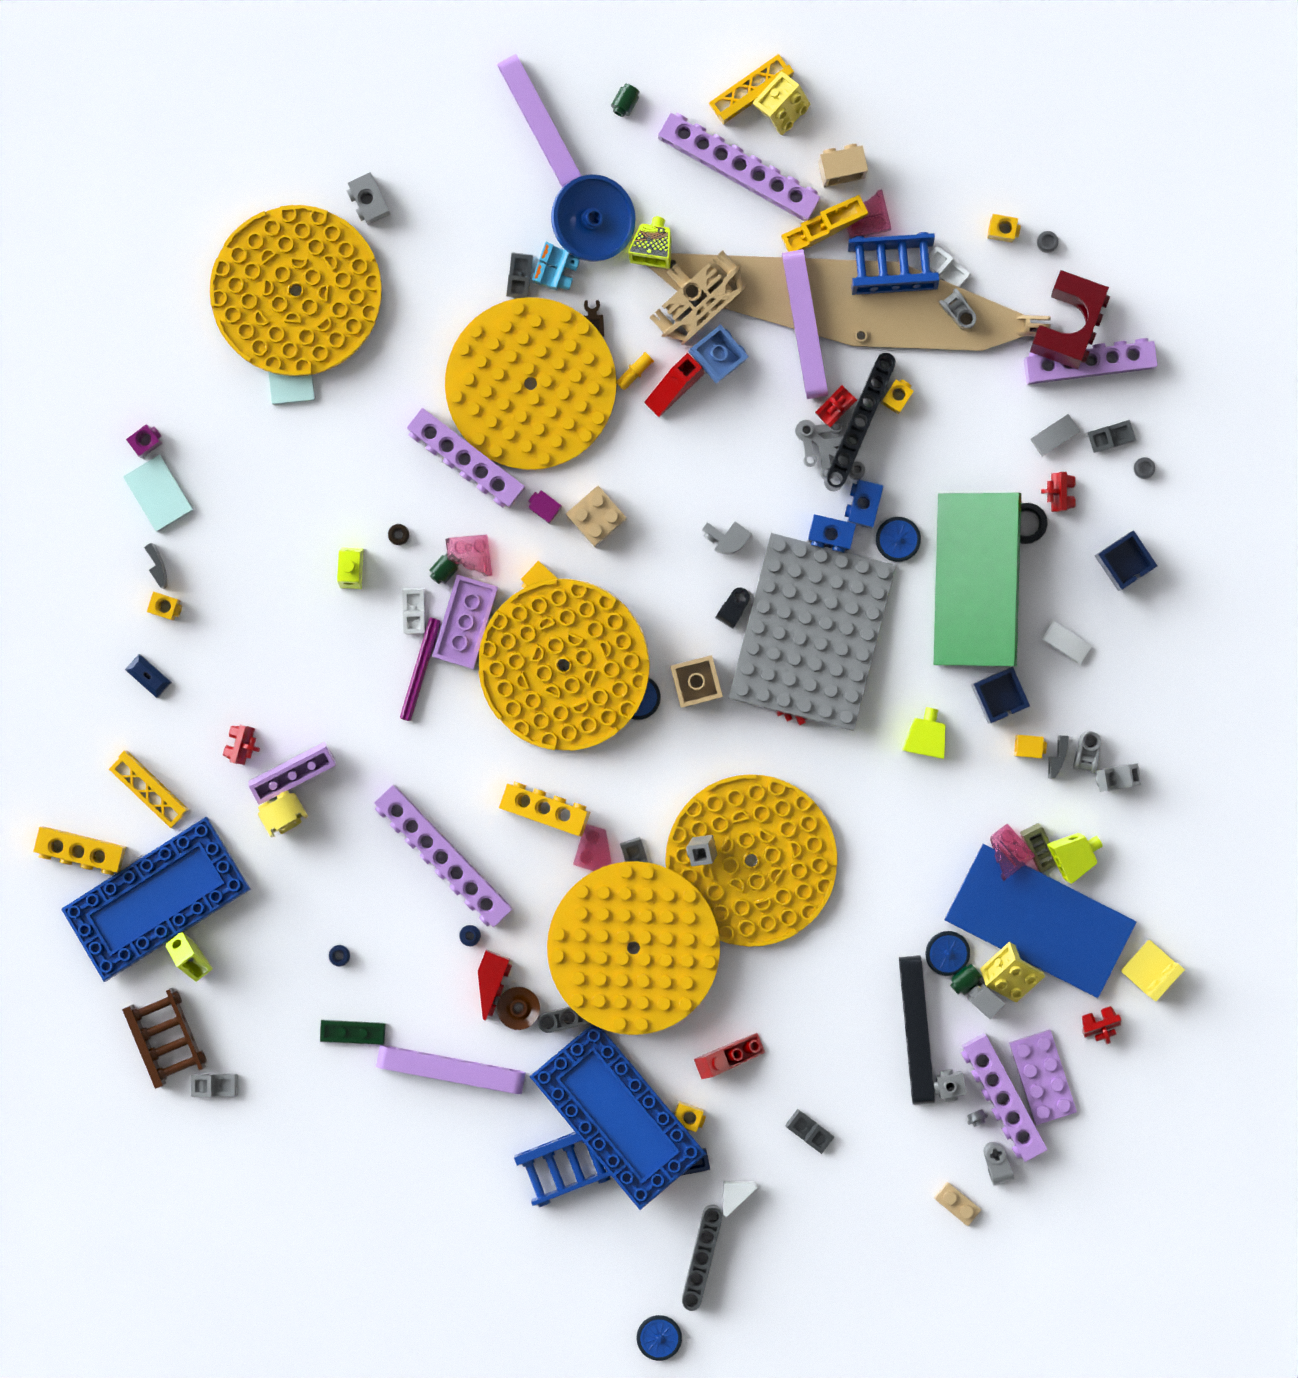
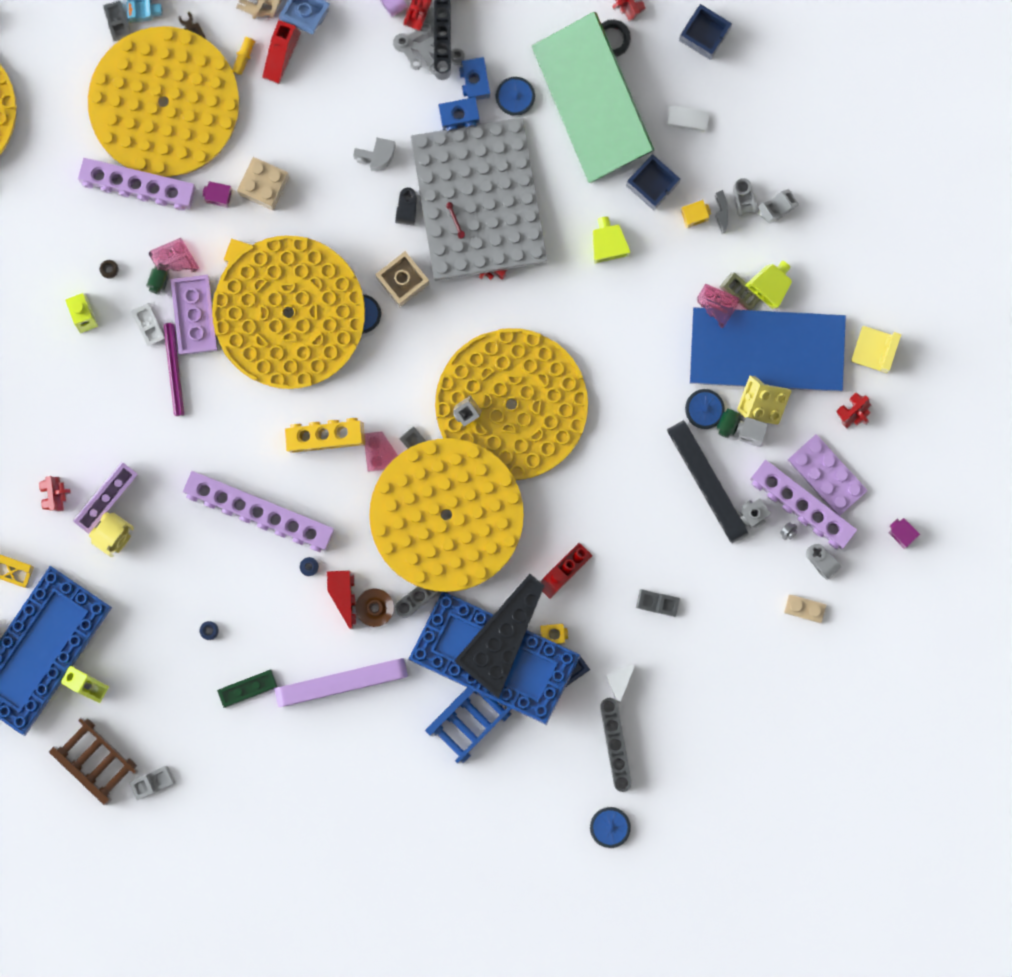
camera: 25 degrees left, 5 degrees down
(623, 1107) = (495, 646): none -> black wing
(777, 663) = (461, 234): none -> dark red hinge
(1093, 1172) = (903, 532): none -> magenta brick

